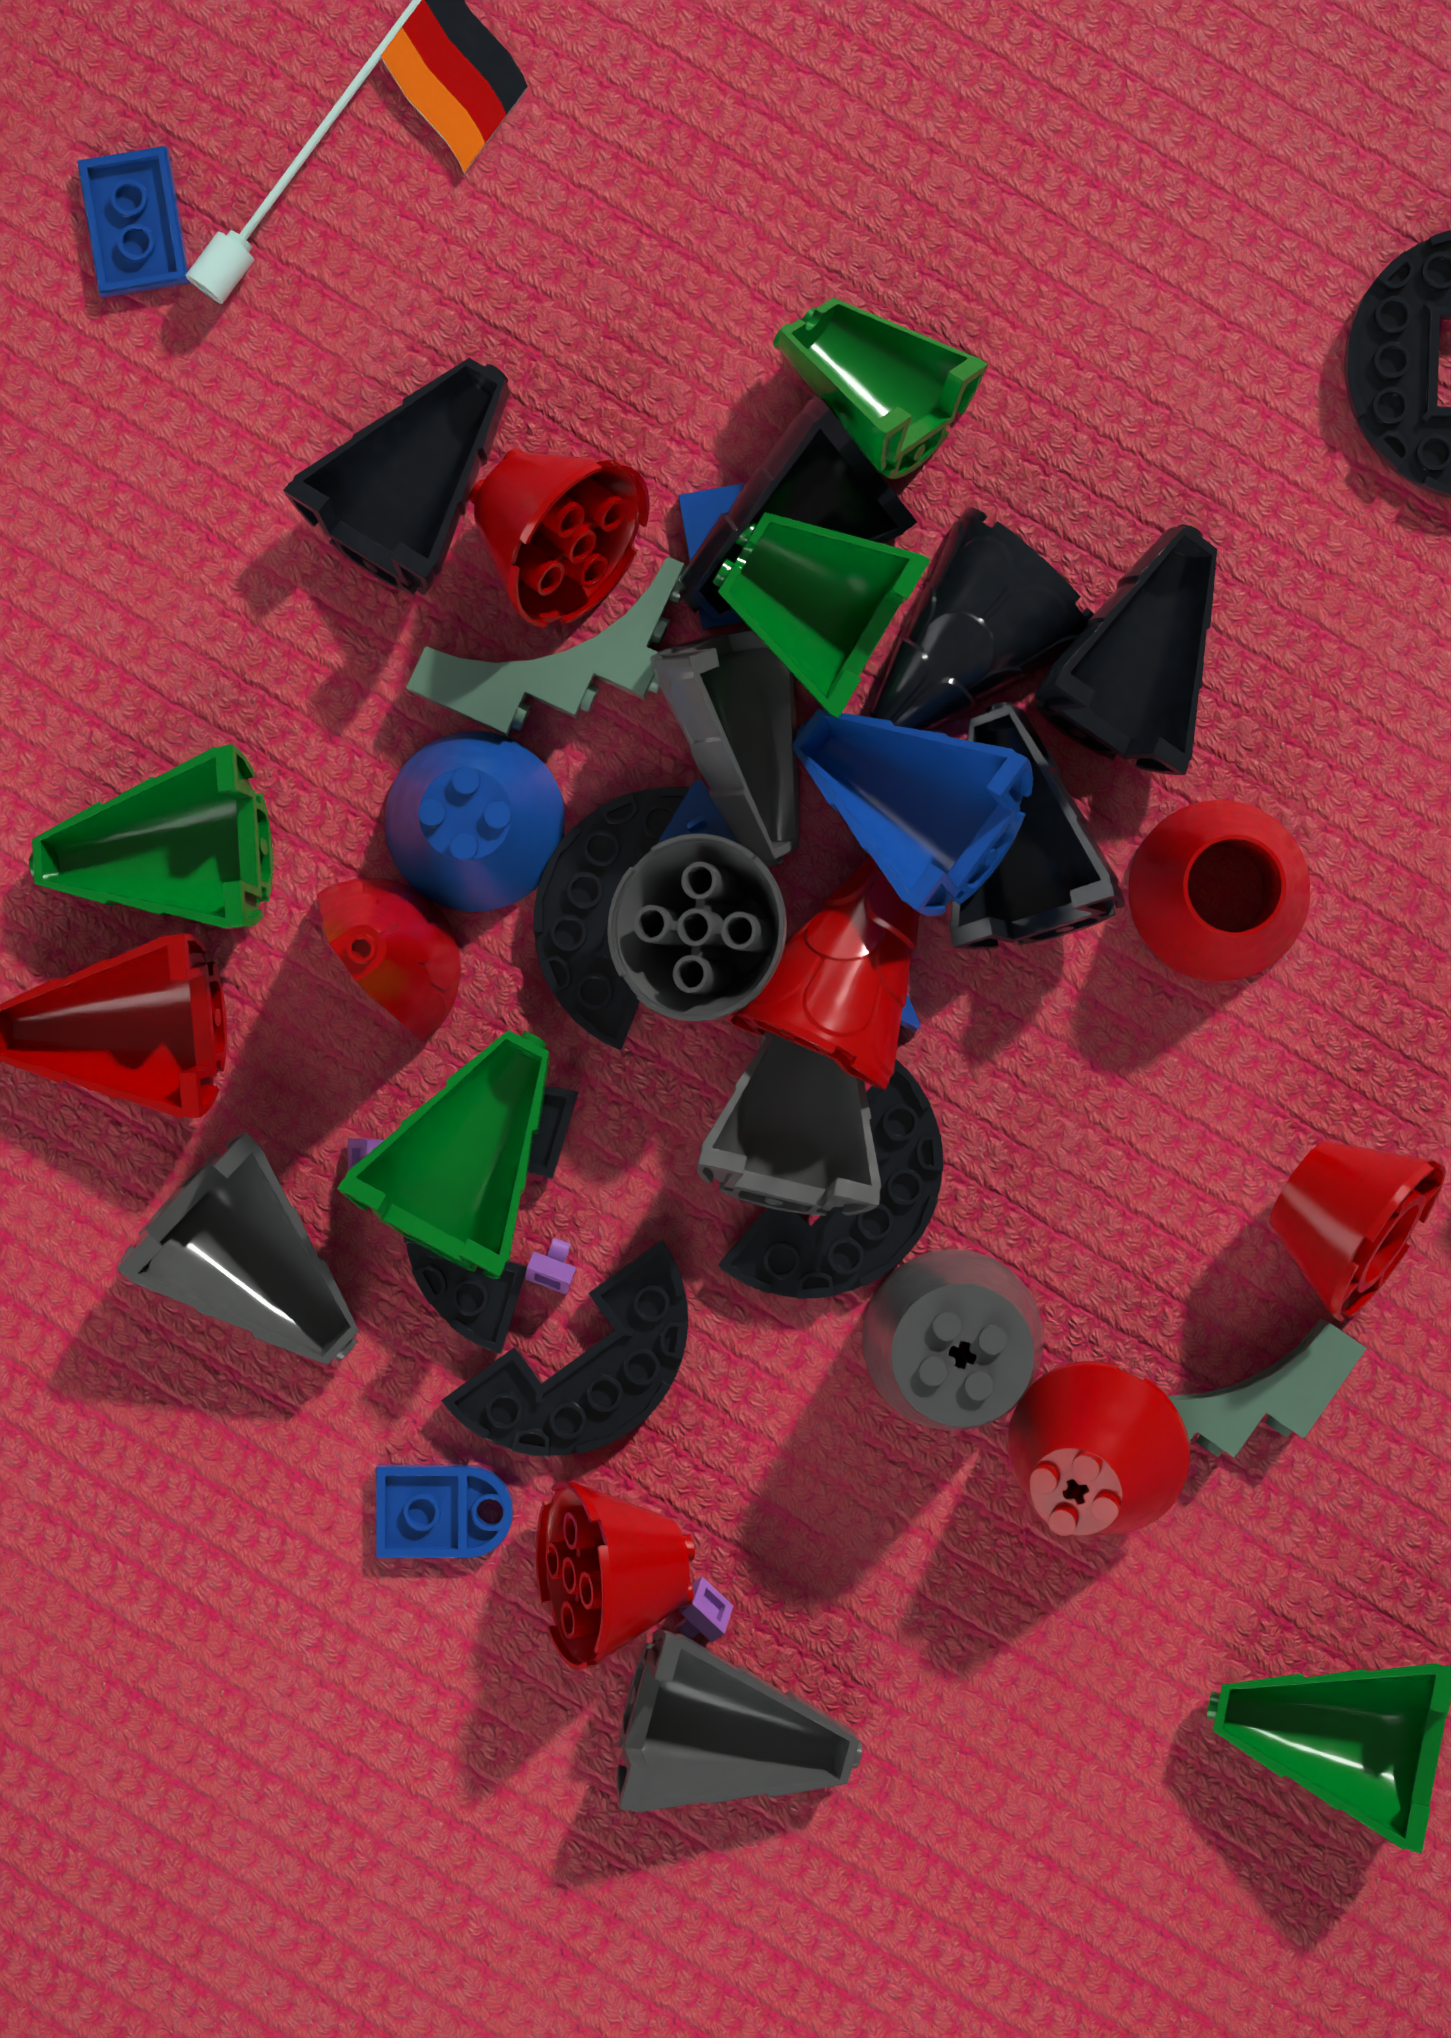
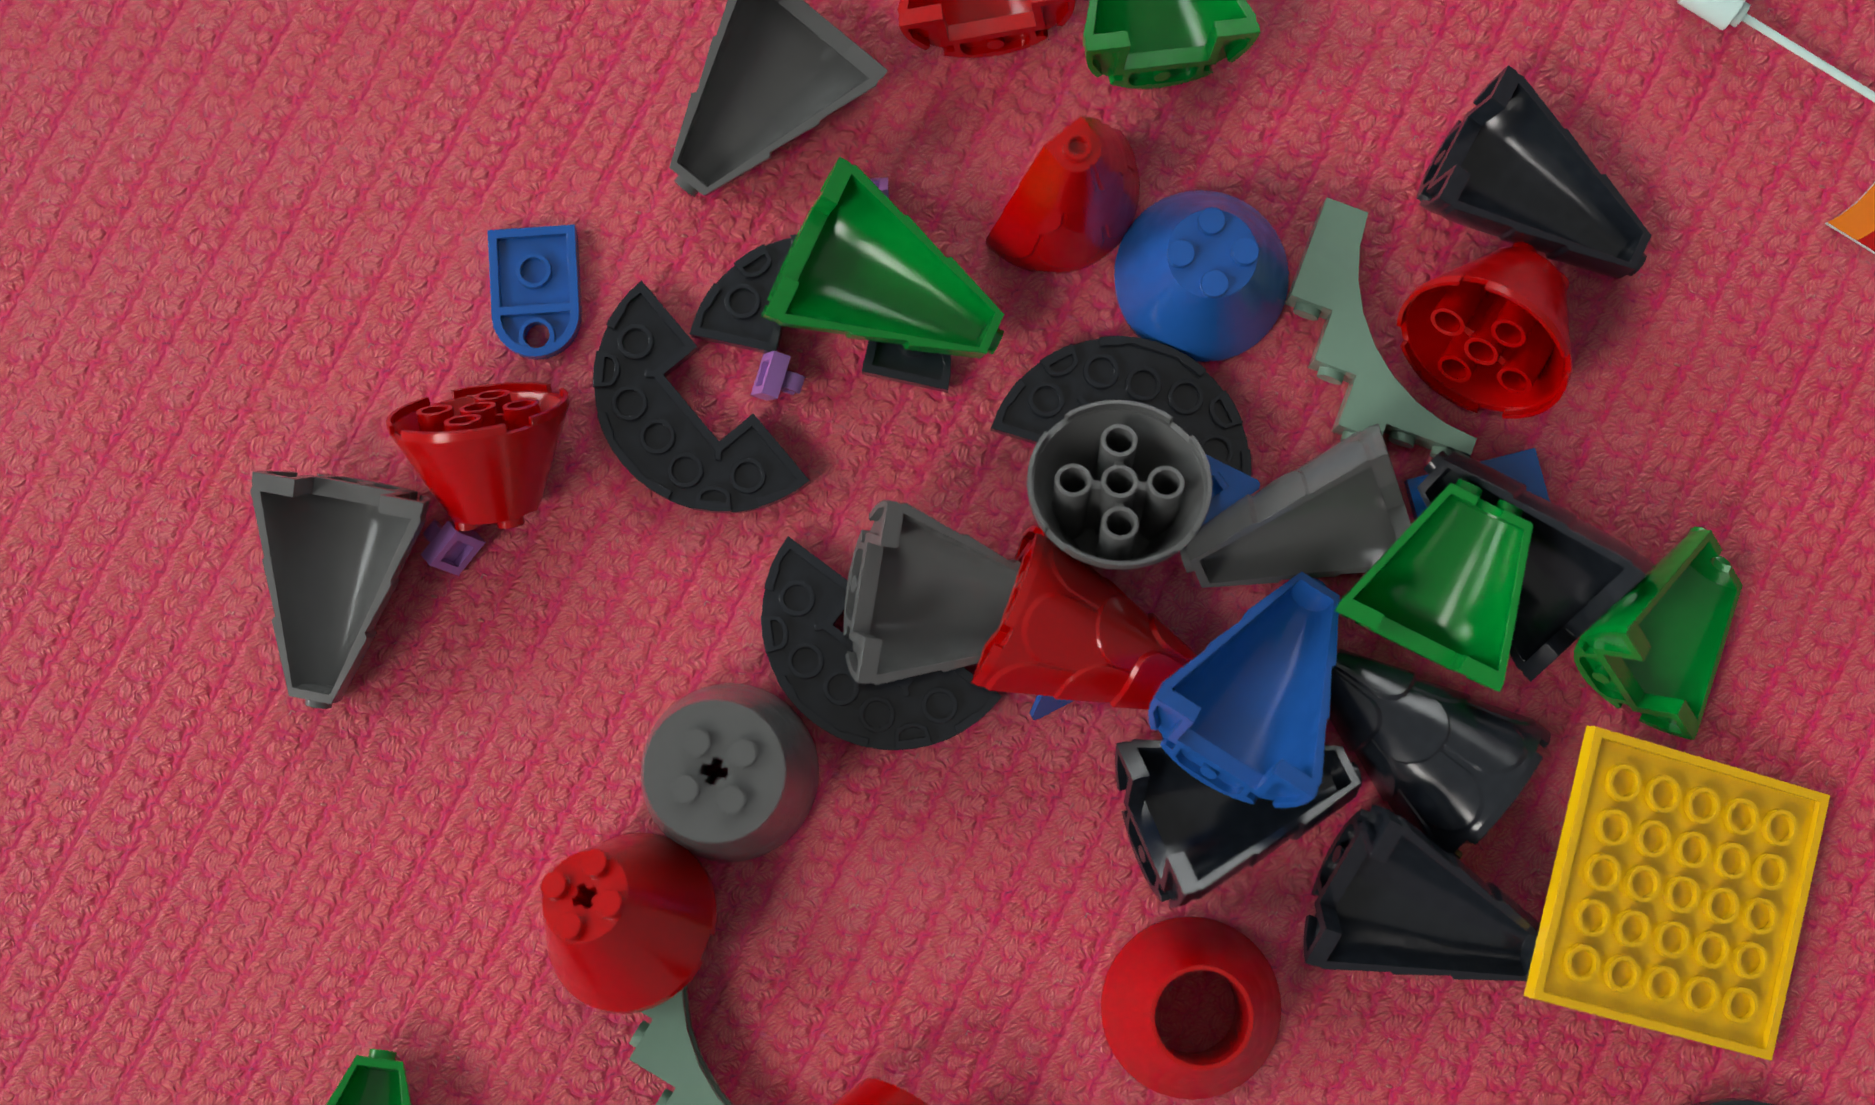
camera: 95 degrees right, 5 degrees down
(1141, 397) = (1677, 894): none -> yellow plate

